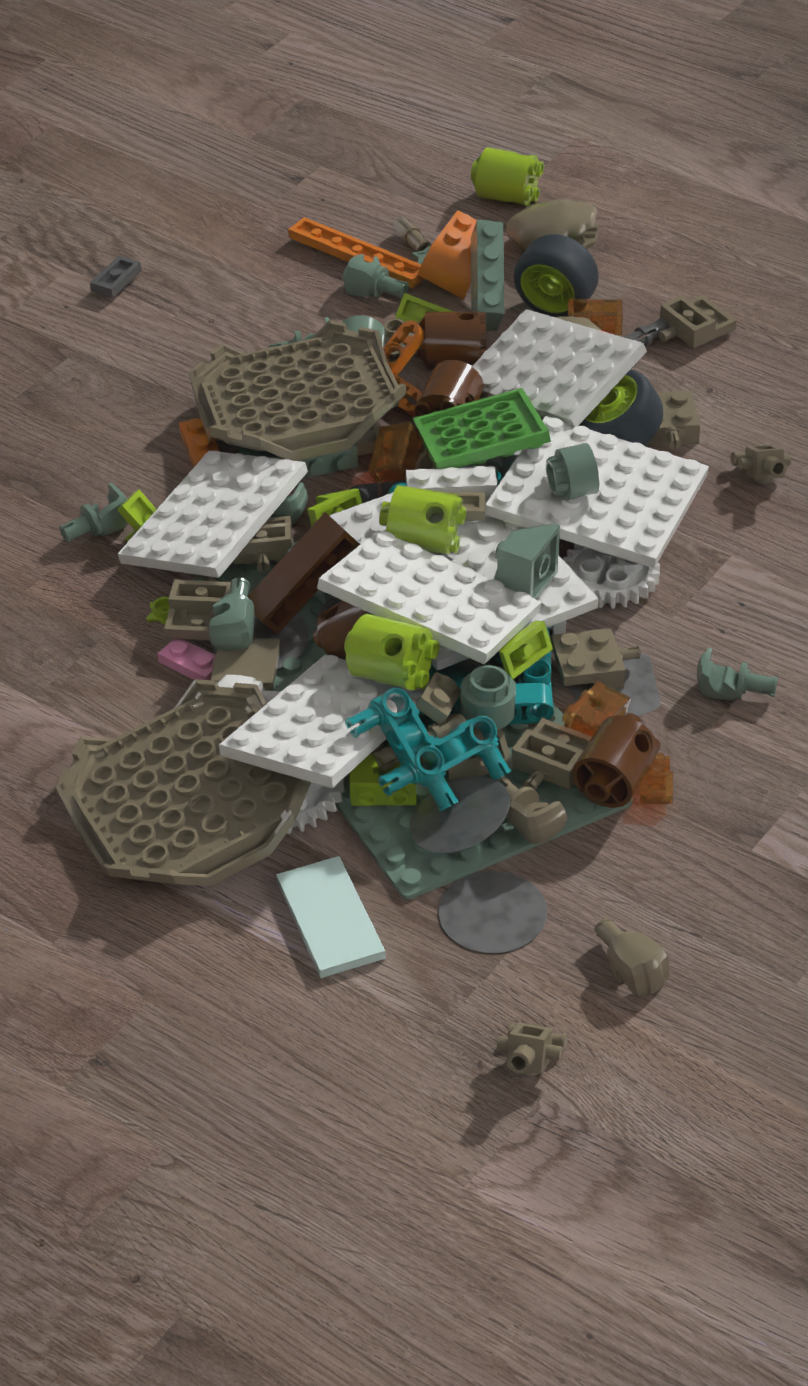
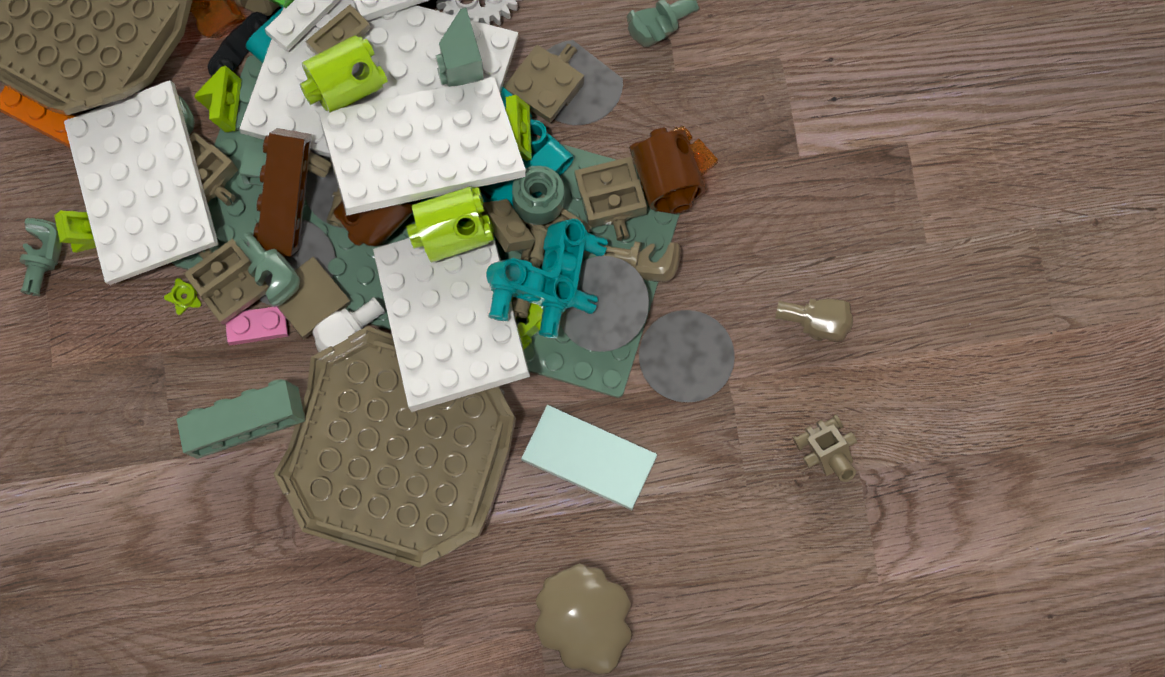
camera: 45 degrees left, 30 degrees up
(102, 692) = (240, 419): none -> sand green brick
(187, 1002) = (584, 619): none -> dark tan piece
(594, 708) = (602, 132): clear orange brick -> none

